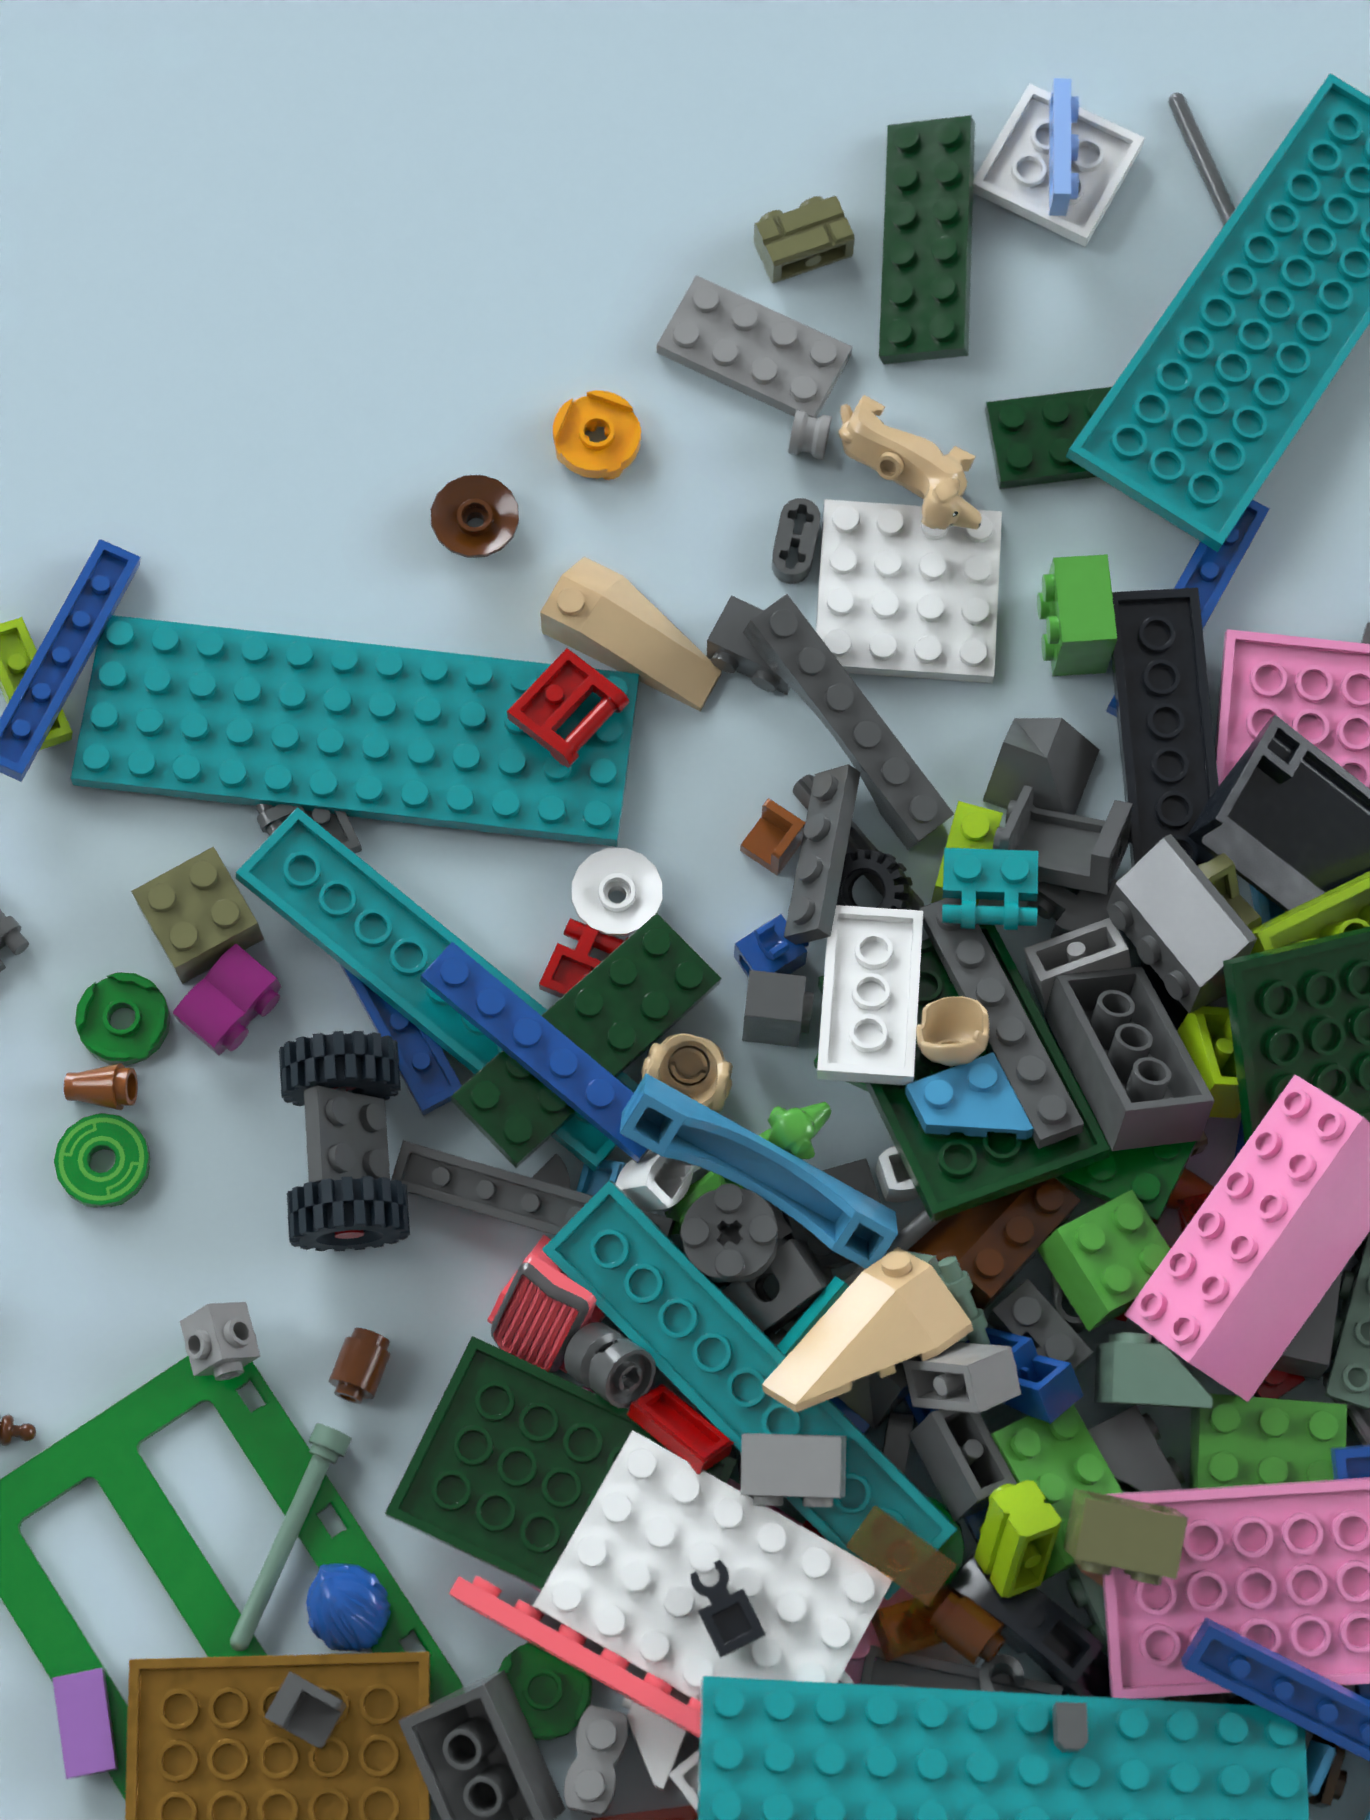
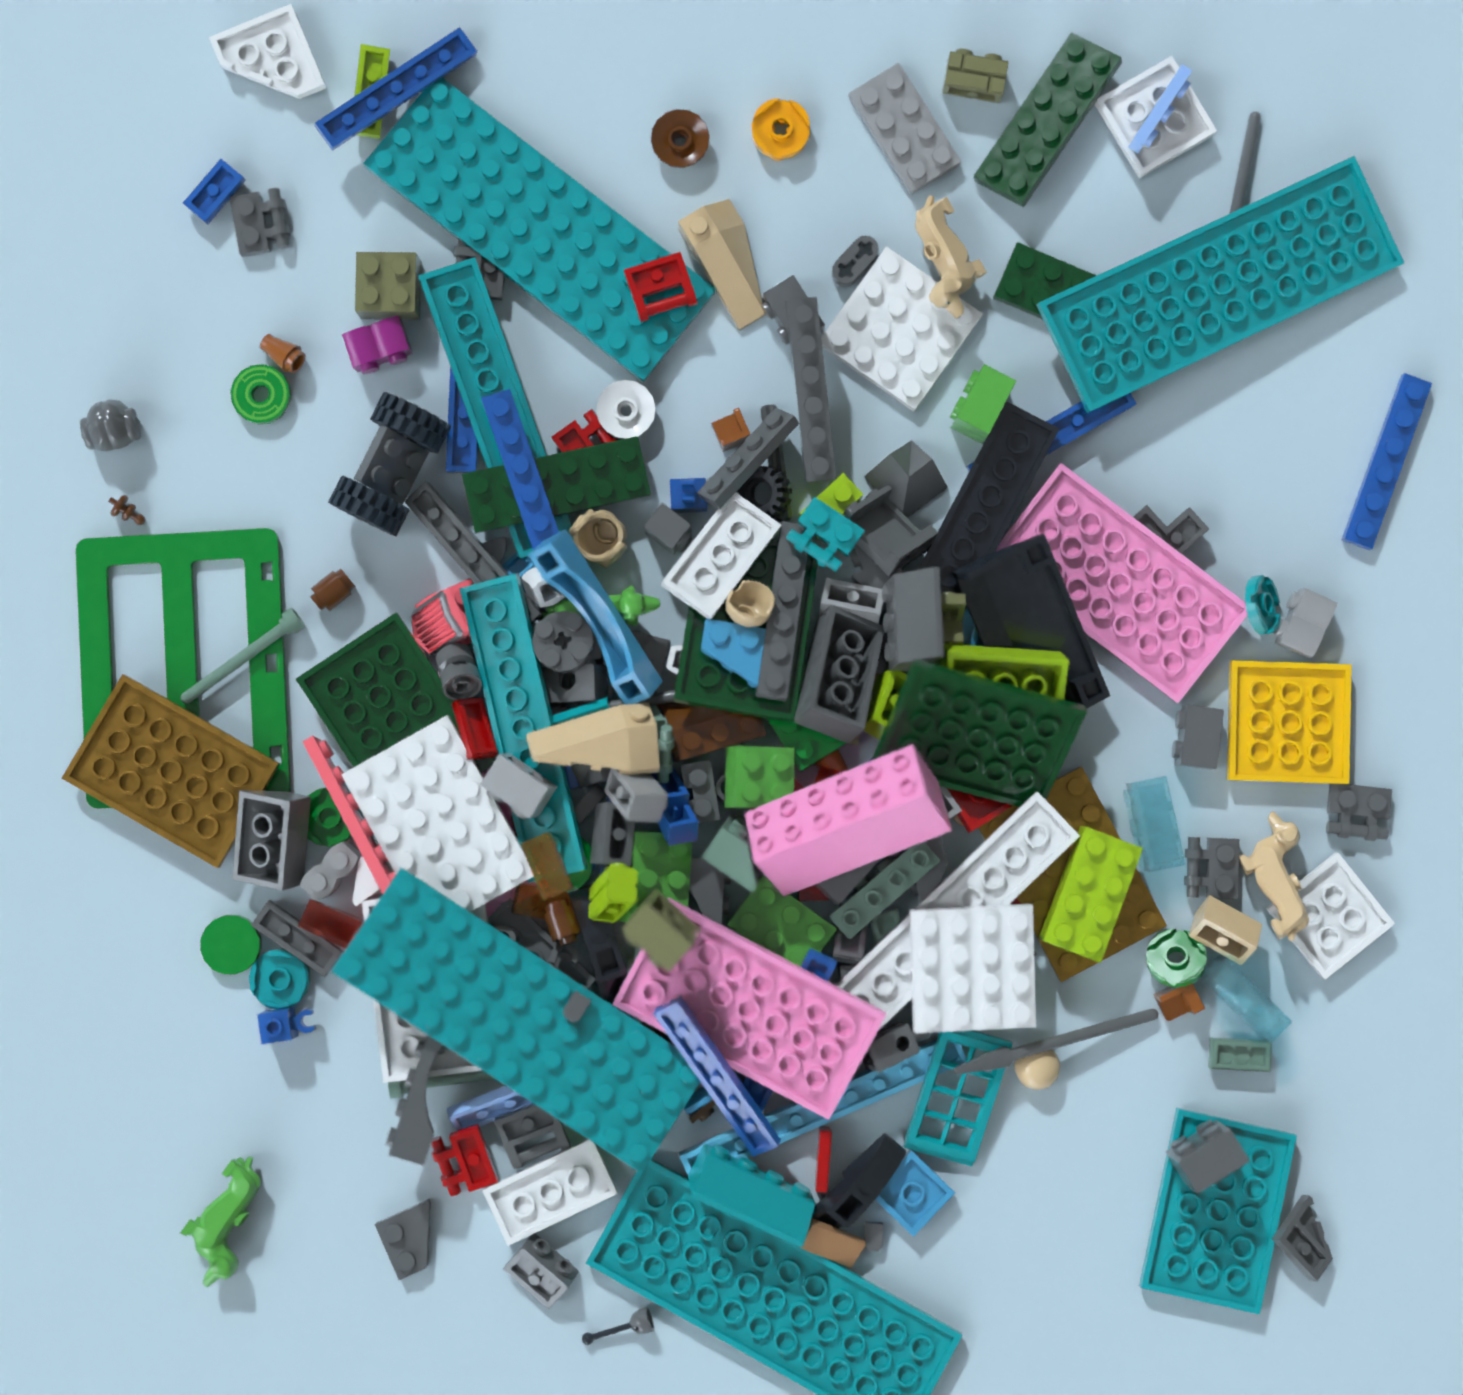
camera: 30 degrees right, 15 degrees up
(85, 1723) = (83, 692): medium lavender tile -> none
(129, 1044) = (316, 337): green tile -> none
(220, 1340) = (263, 533): light grey brick -> none
(305, 1710) = (195, 755): dark grey panel -> none
(347, 1607) = (251, 714): blue hair -> none
(729, 1616) = (434, 845): black plate -> none
(809, 434) = (902, 201): light grey wheel -> none

